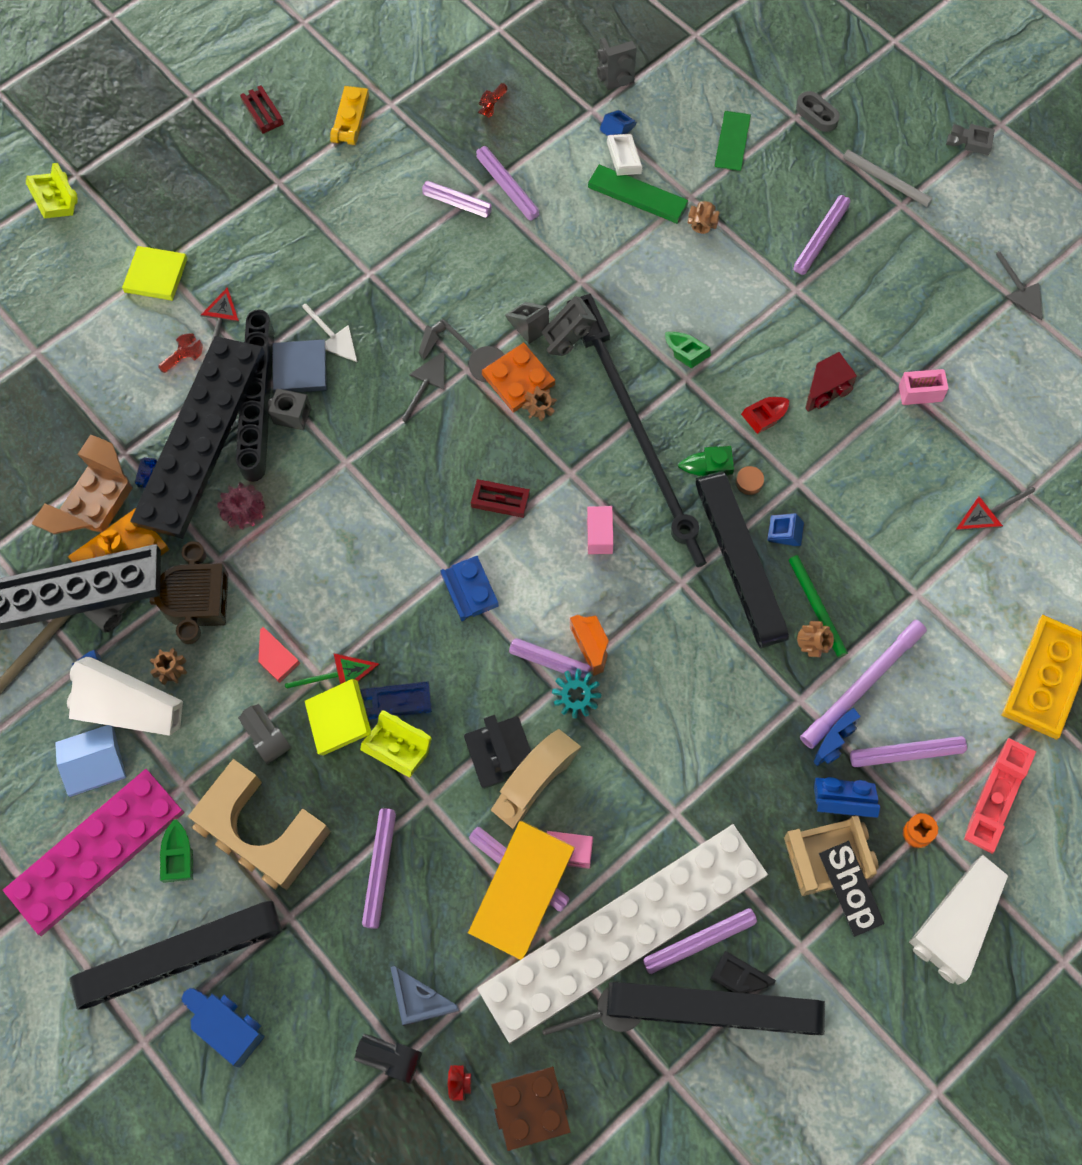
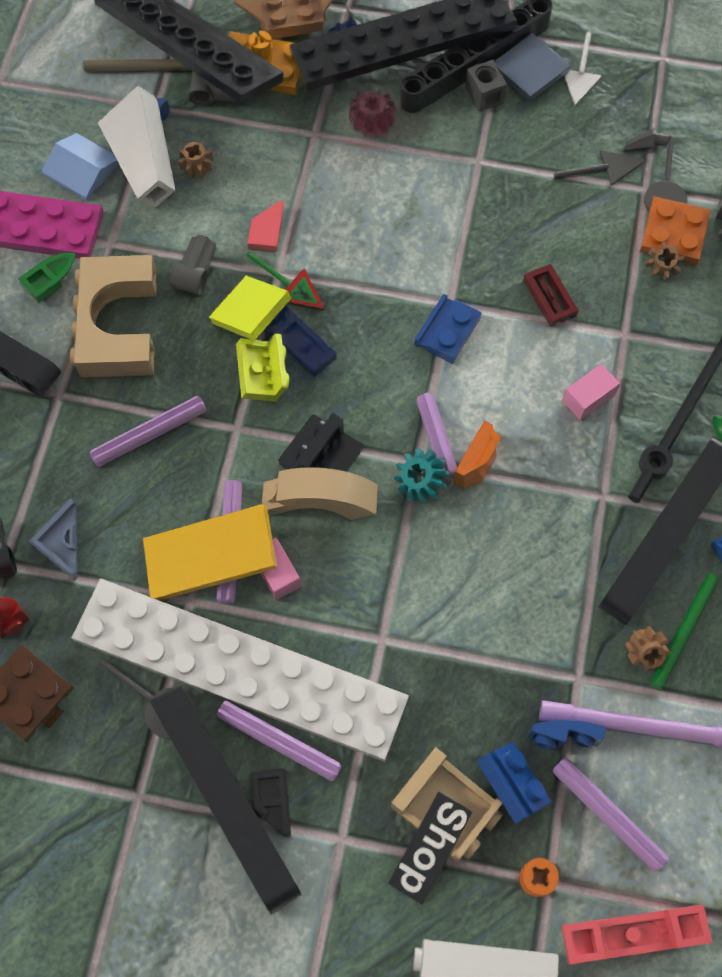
camera: 50 degrees right, 0 degrees up
(193, 594) = (269, 133): dark brown piece -> none

